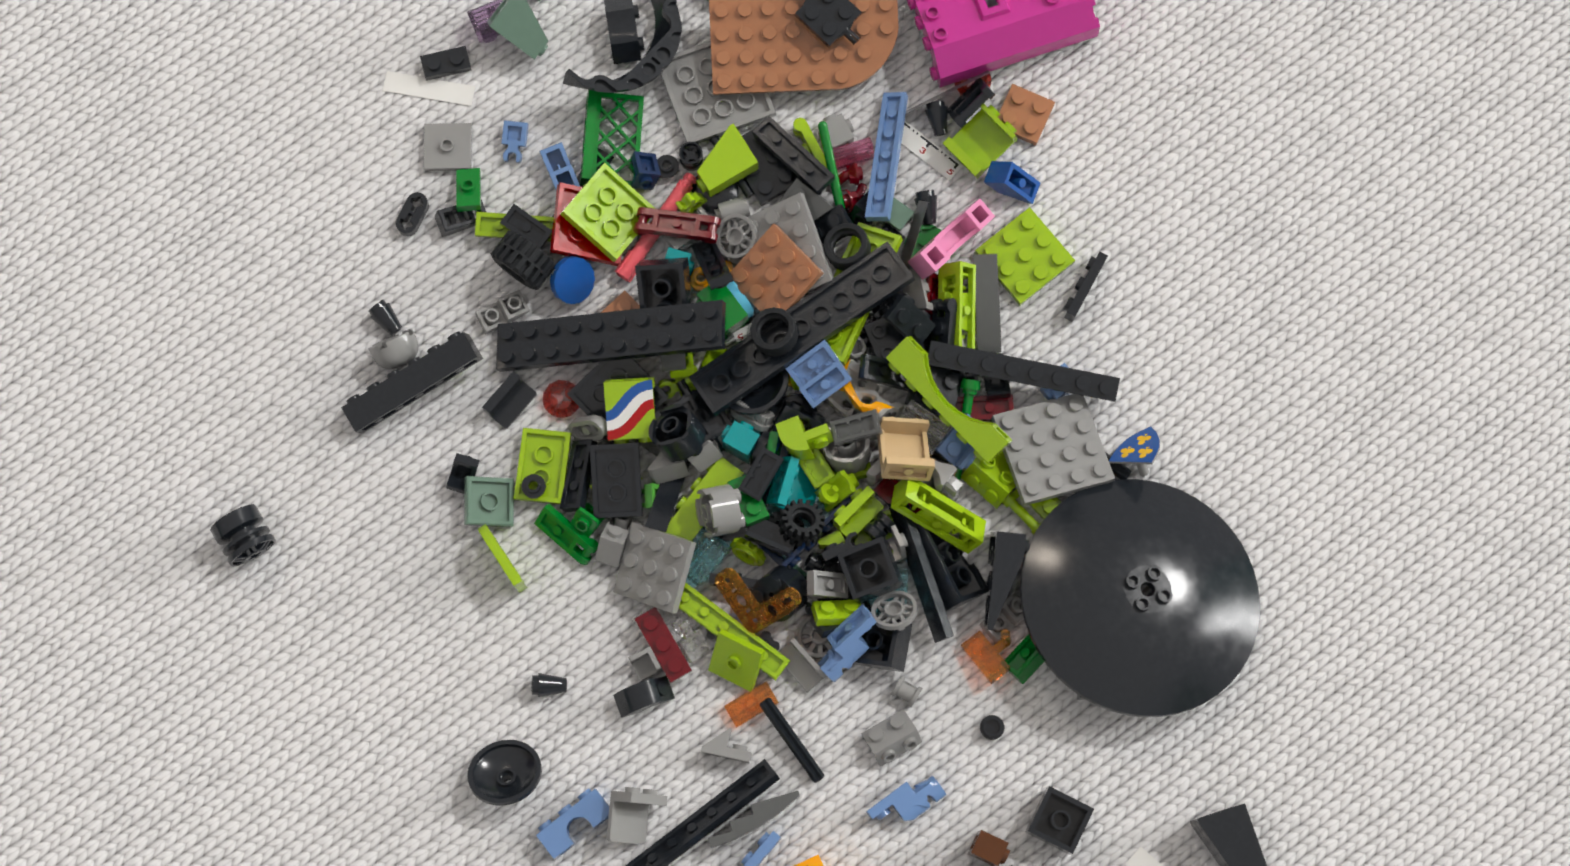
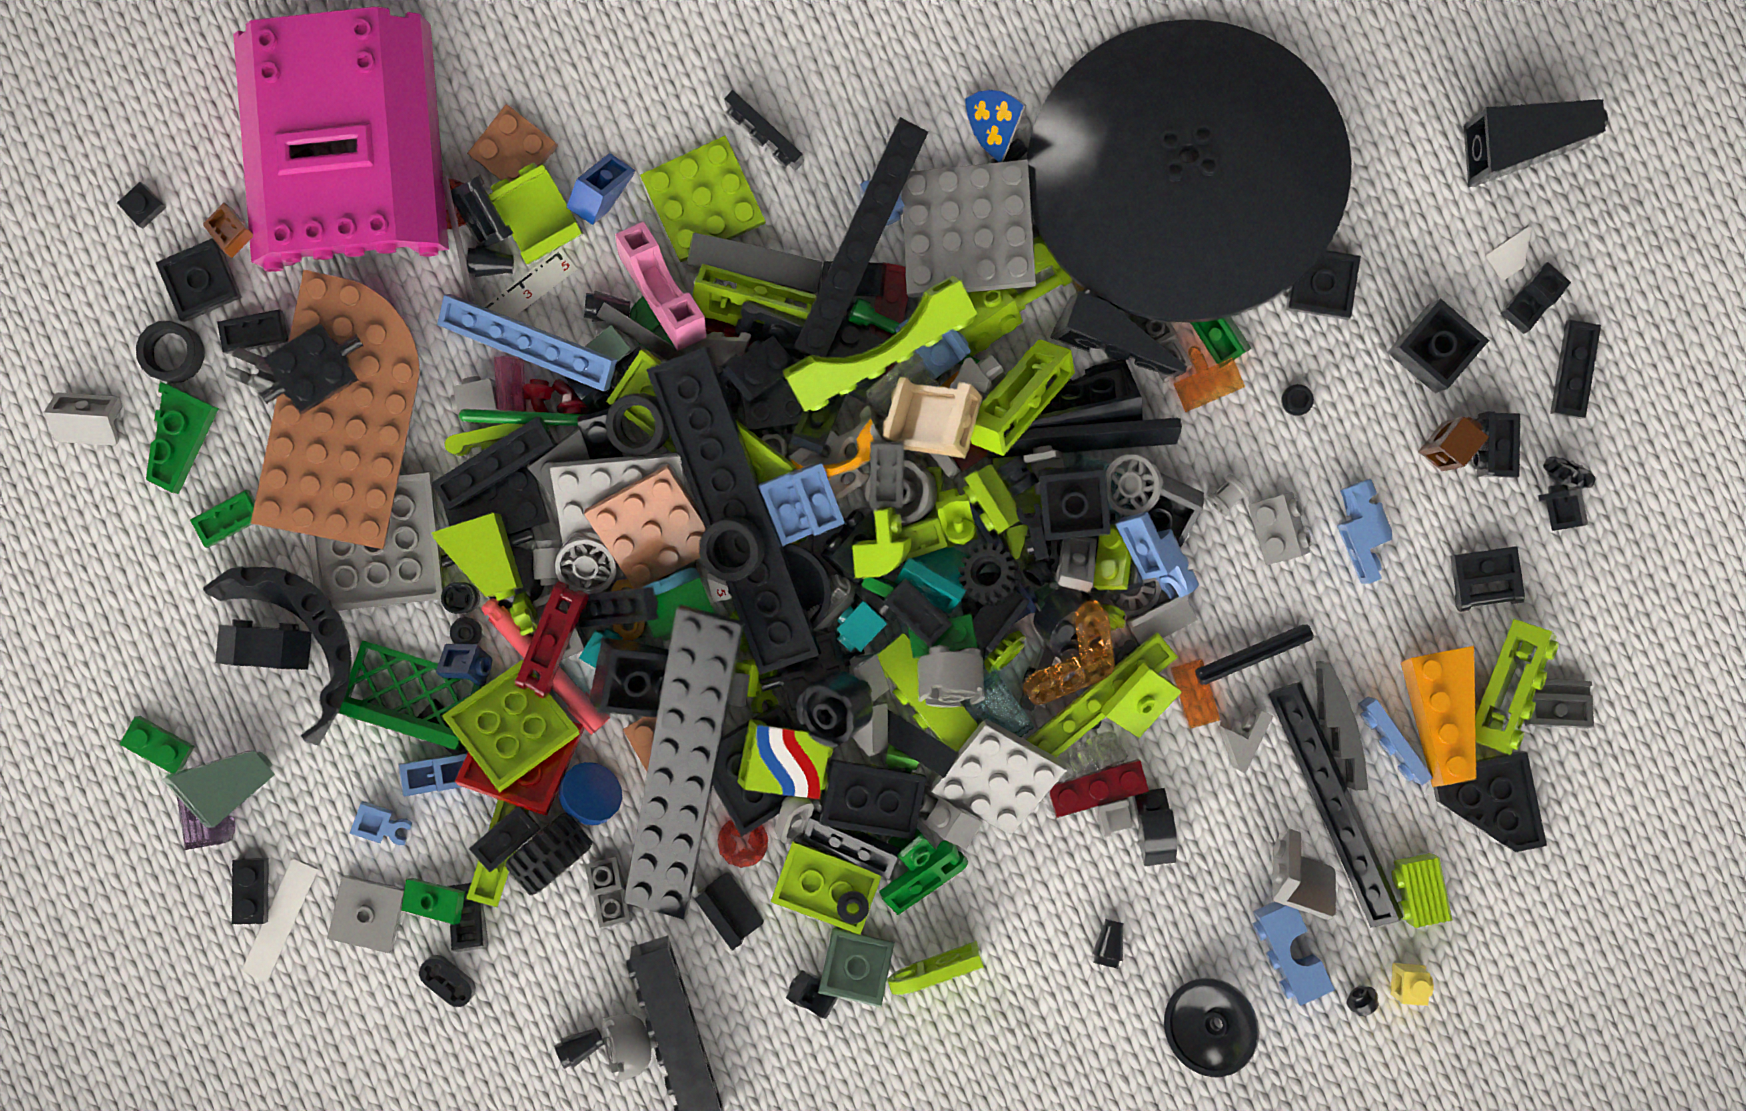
camera: 75 degrees left, 10 degrees up
(792, 626) = (1116, 616): none -> lime plate
(1084, 726) = (1327, 287): none -> black plate

